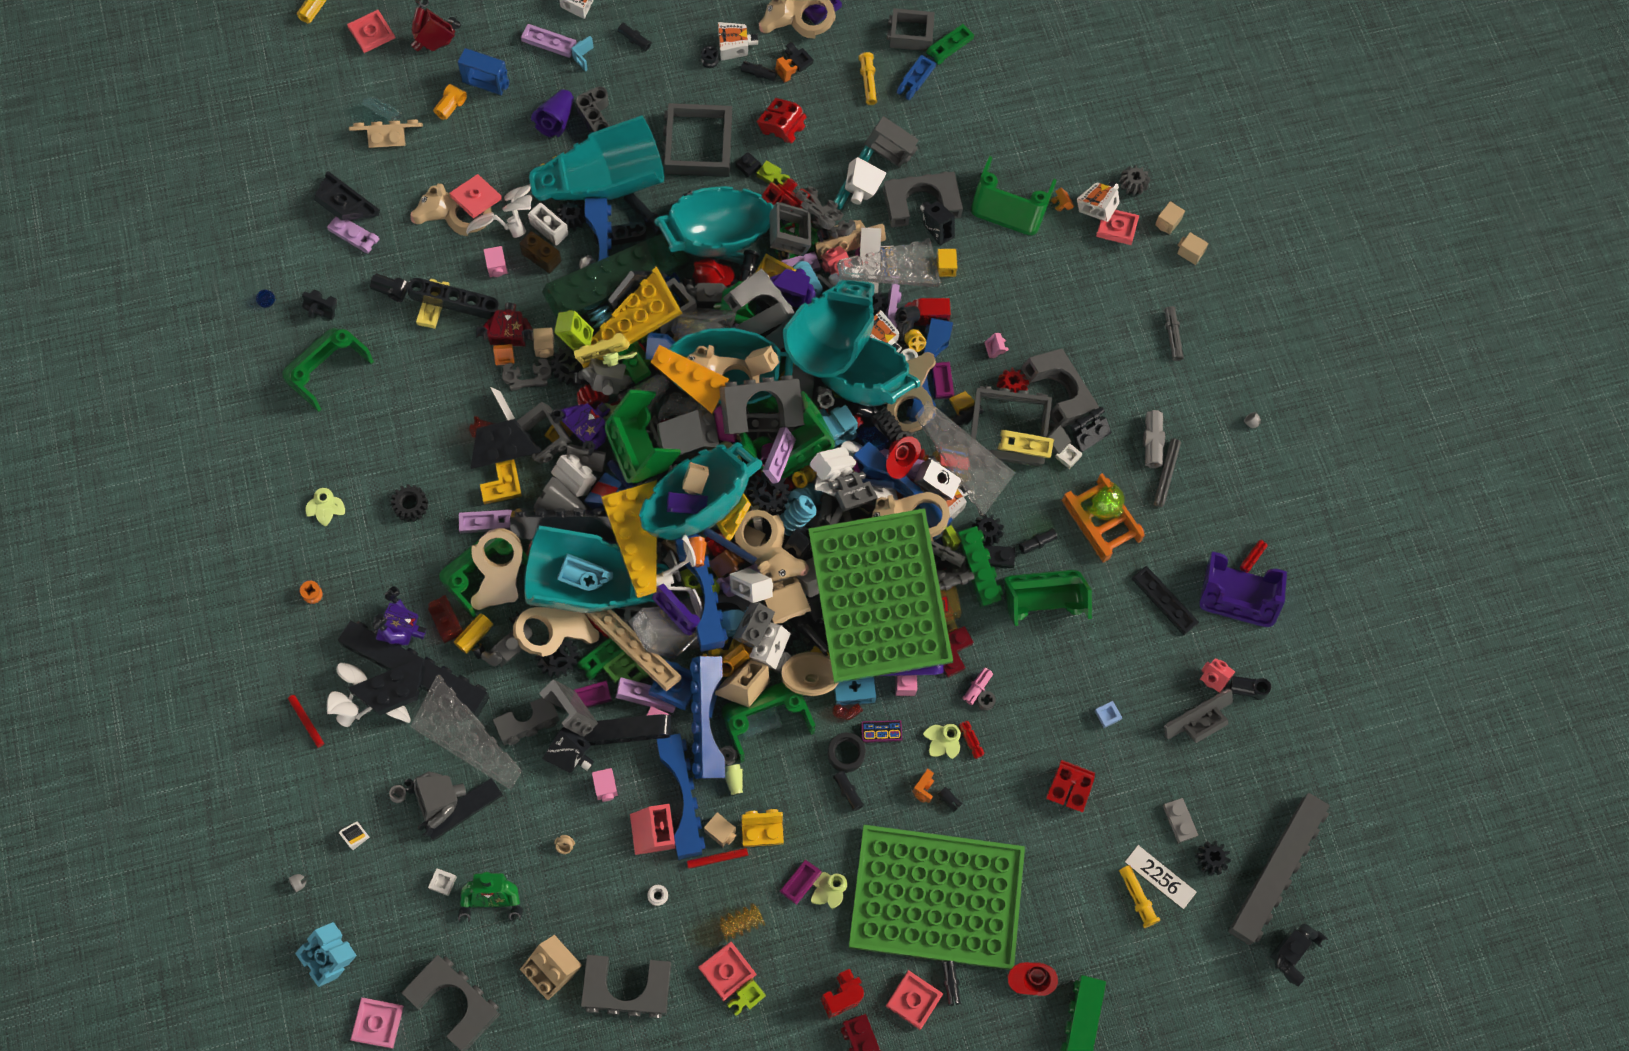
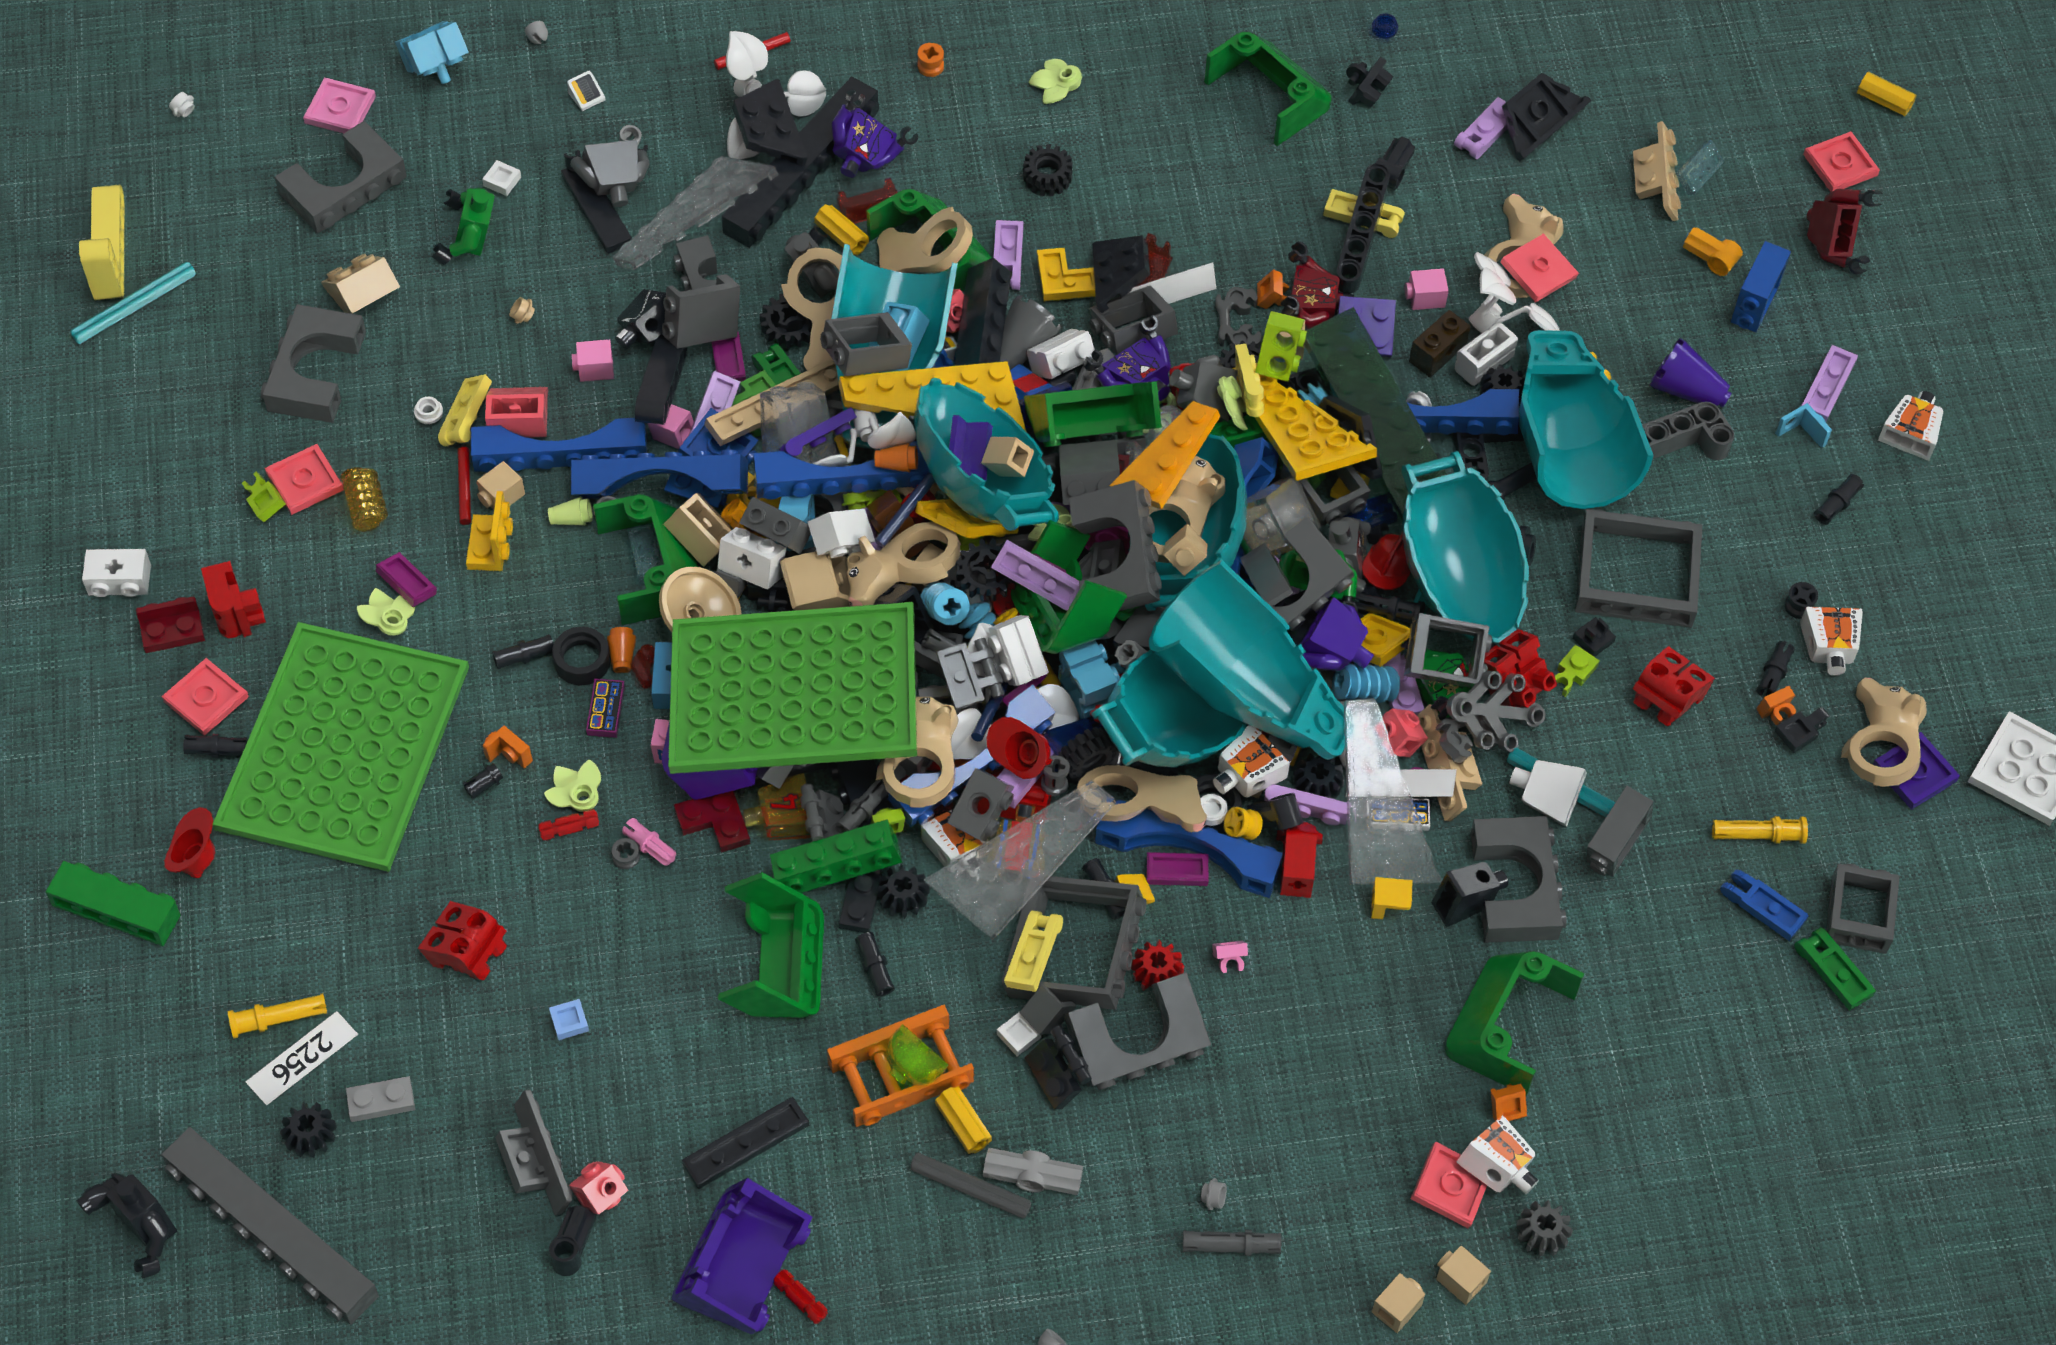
camera: 100 degrees right, 10 degrees down
(528, 296) = (1377, 317): none -> dark purple plate
(593, 571) = (891, 353): none -> dark grey window
(657, 867) = (464, 411): none -> light yellow plate
(833, 727) = (621, 648): none -> orange cone
(1132, 477) = (963, 1120): none -> yellow axle
(1147, 344) = (1214, 1194): none -> light grey plate

